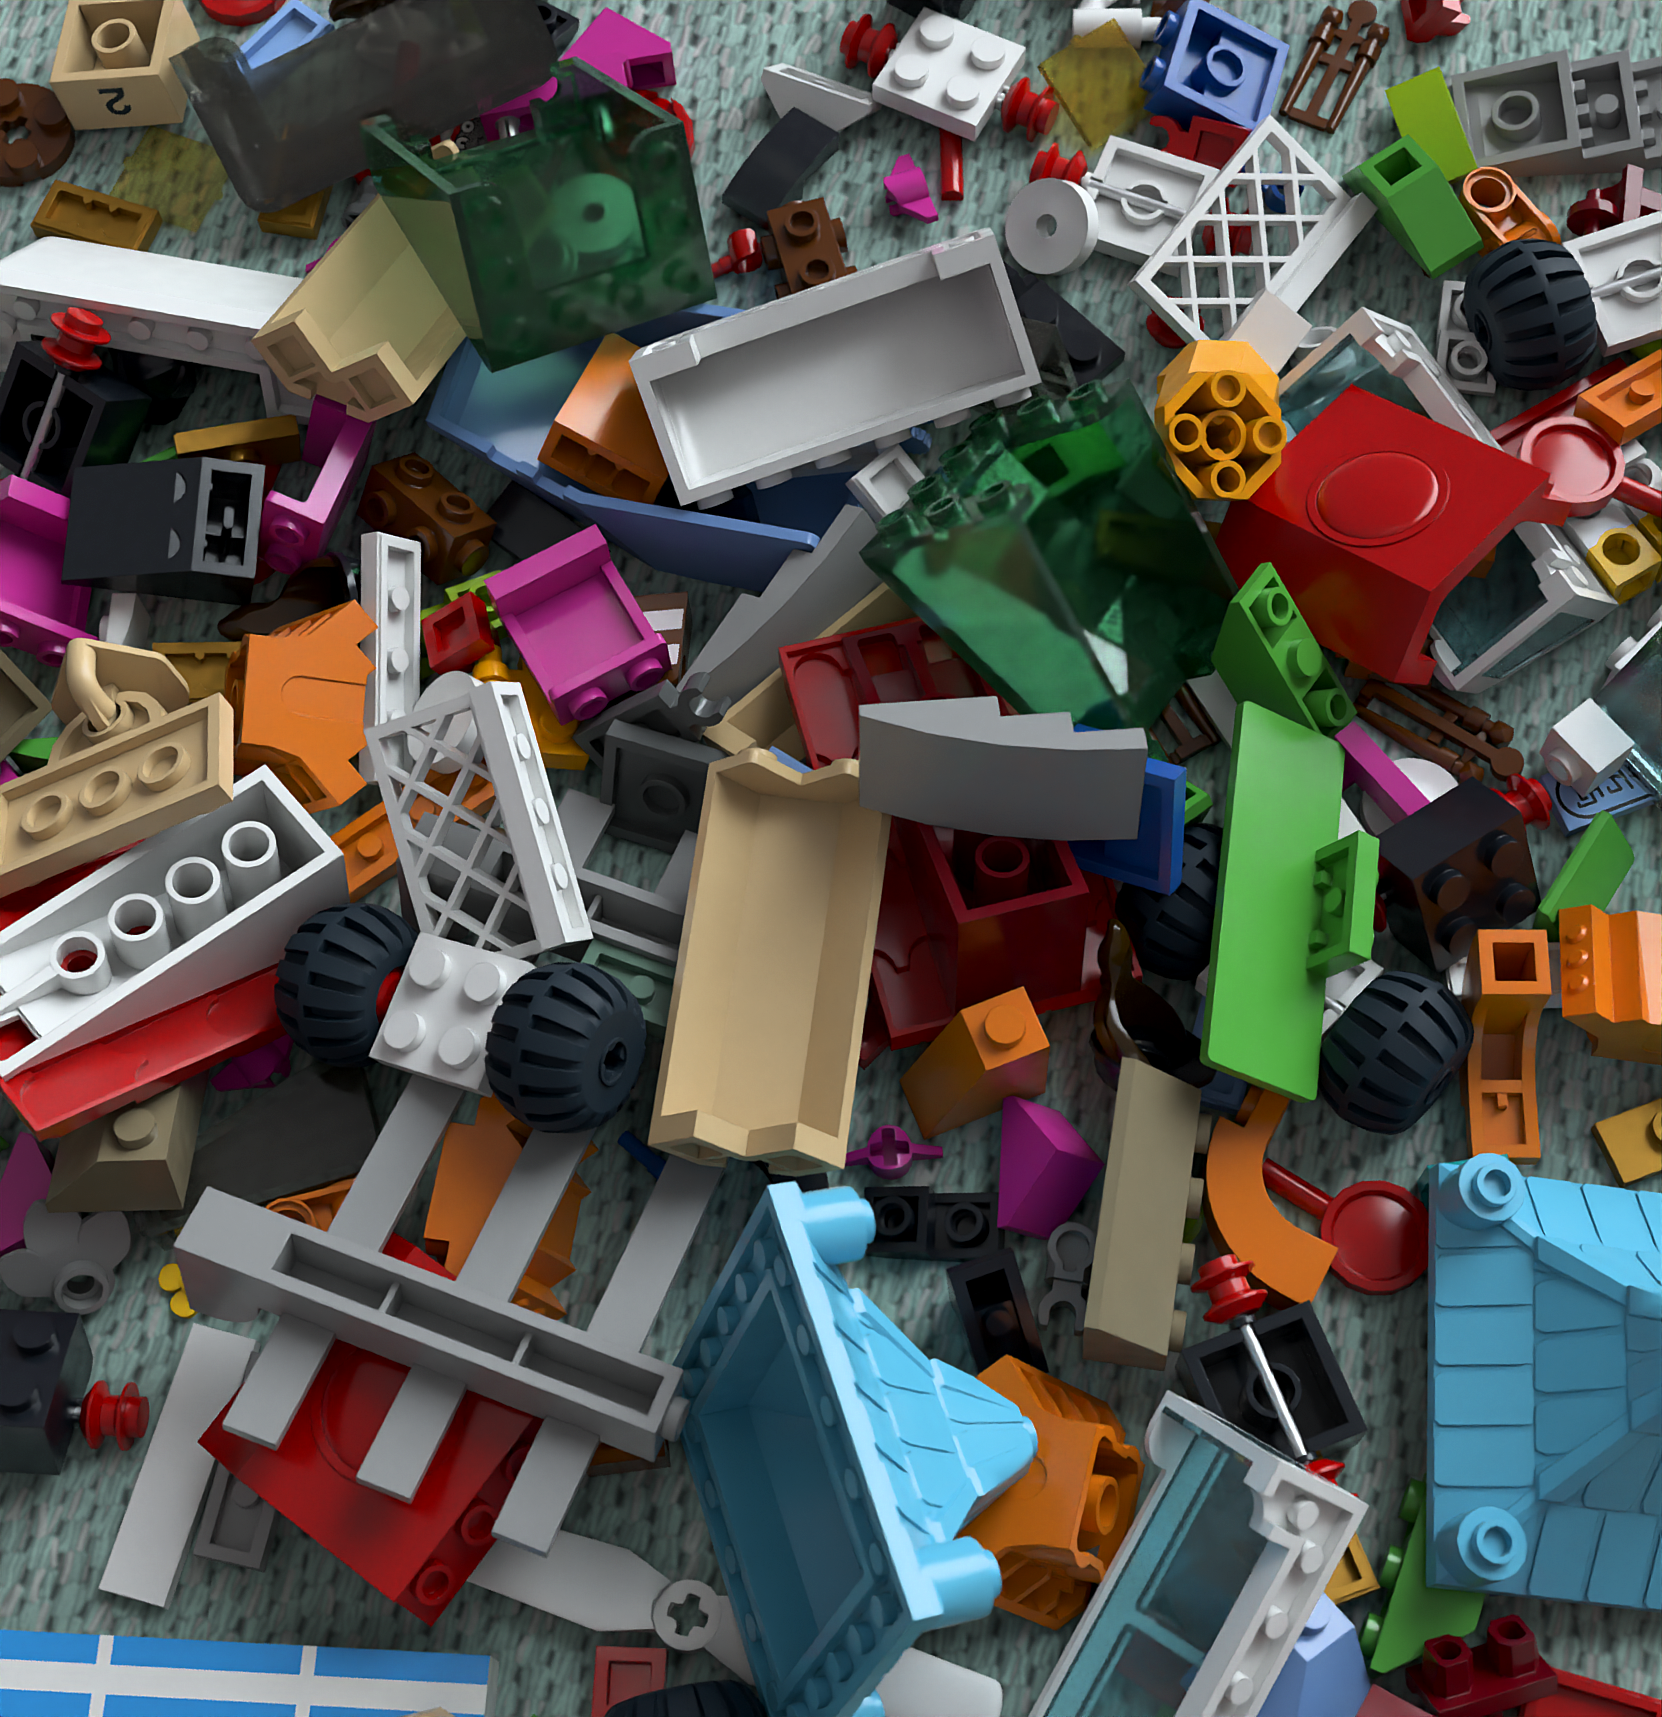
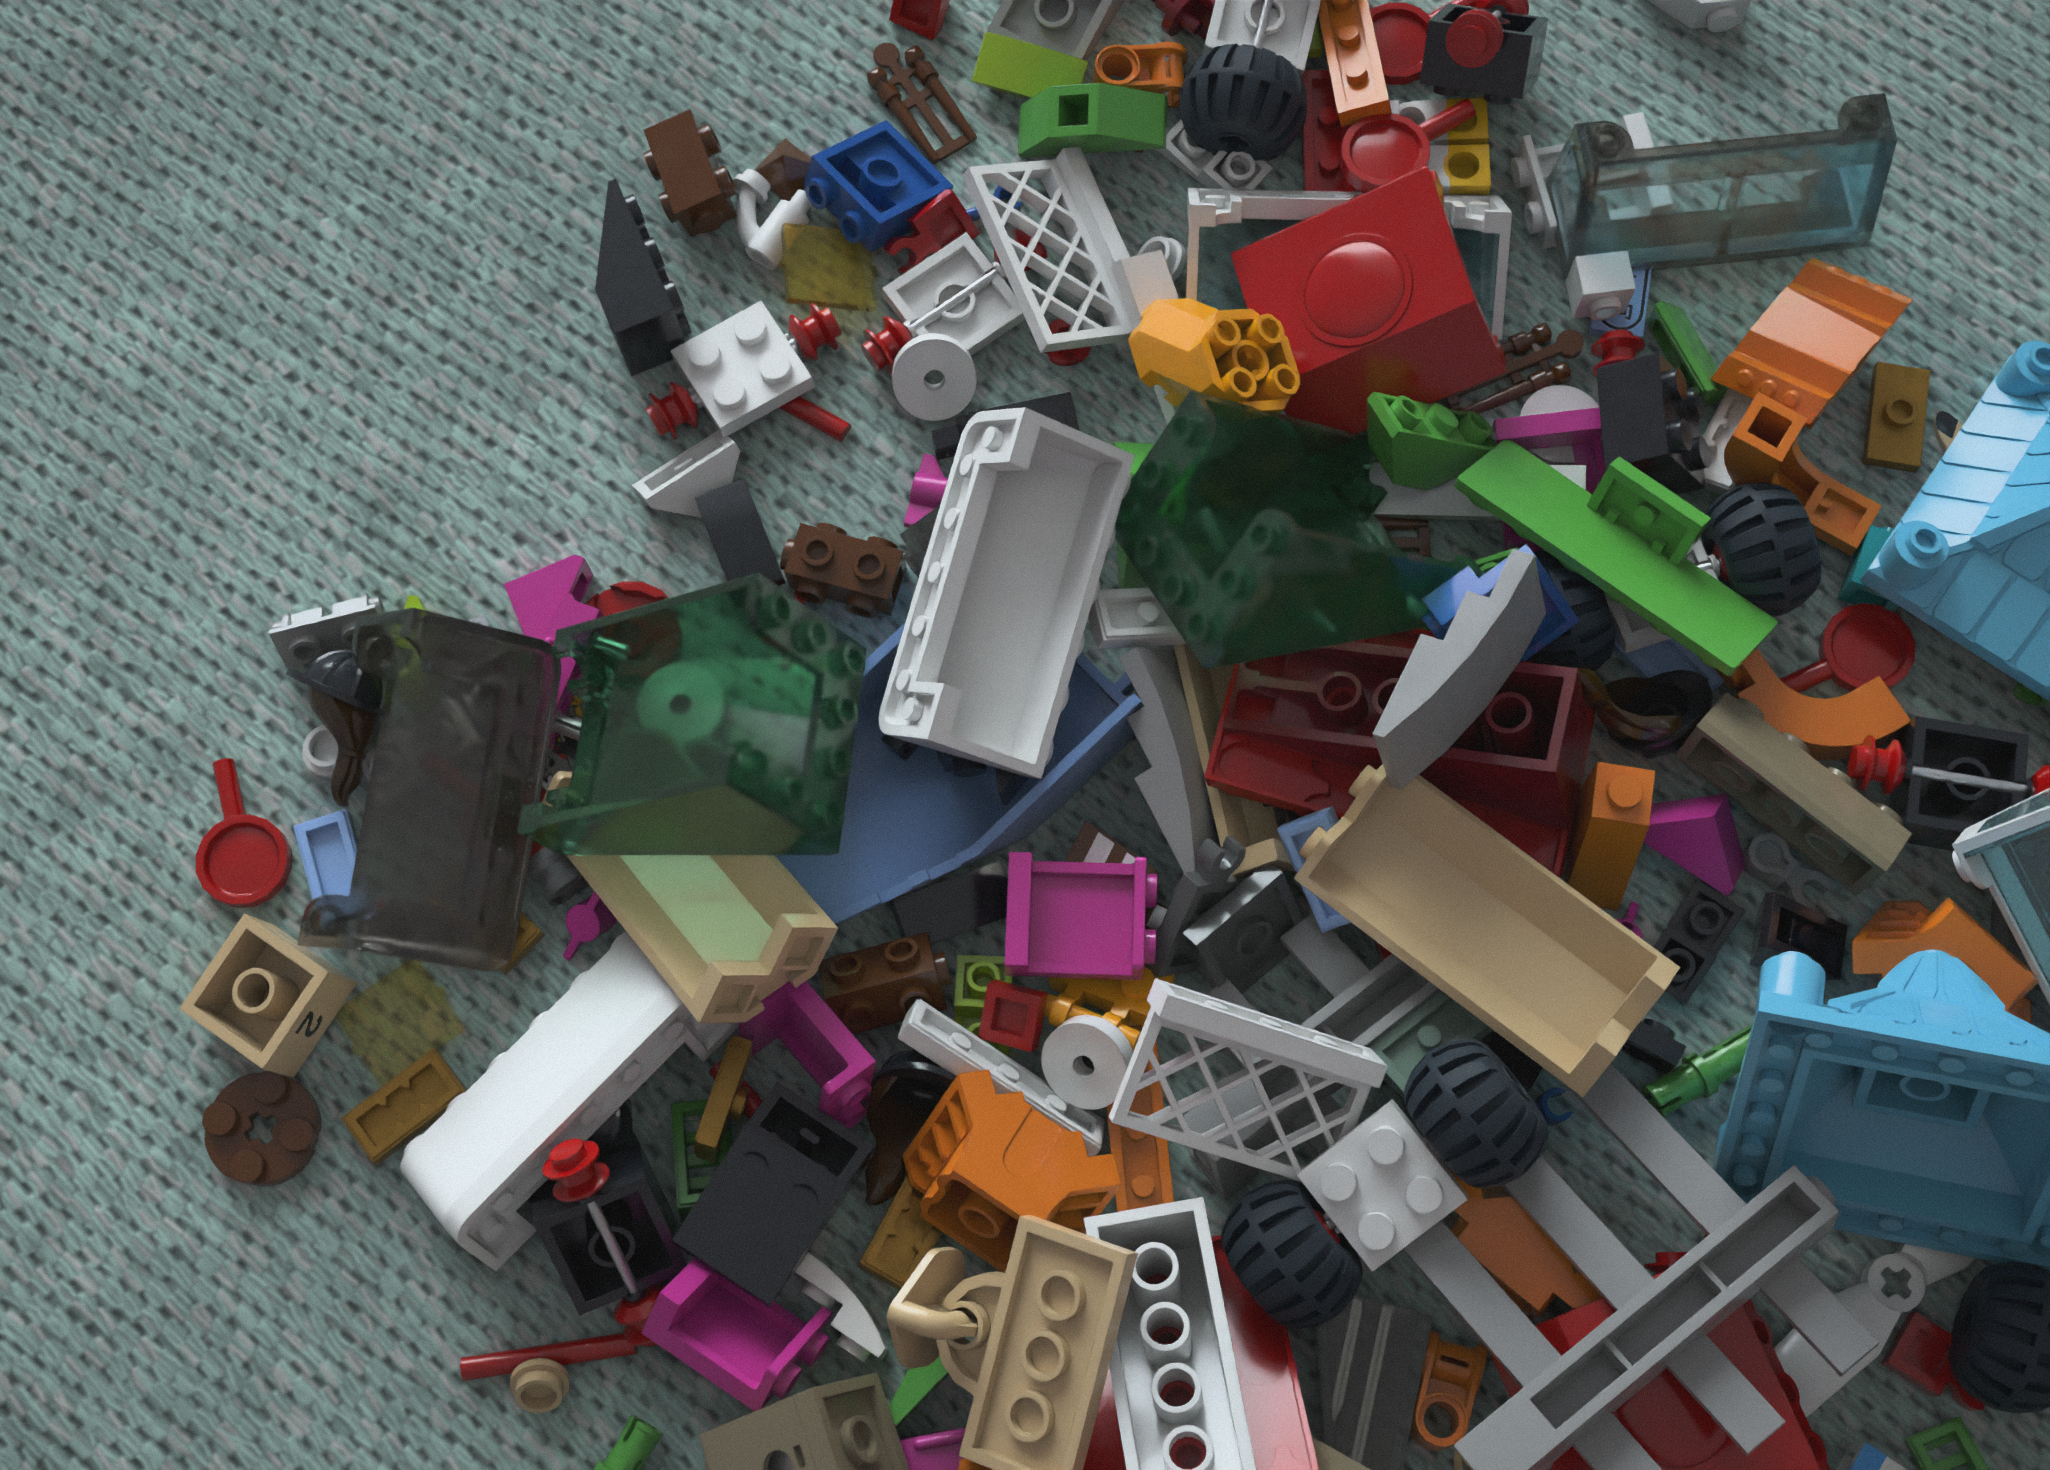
camera: 60 degrees left, 5 degrees up
(605, 430) = (919, 794): orange slope -> none
(910, 191) = (823, 459): dark pink piece -> none

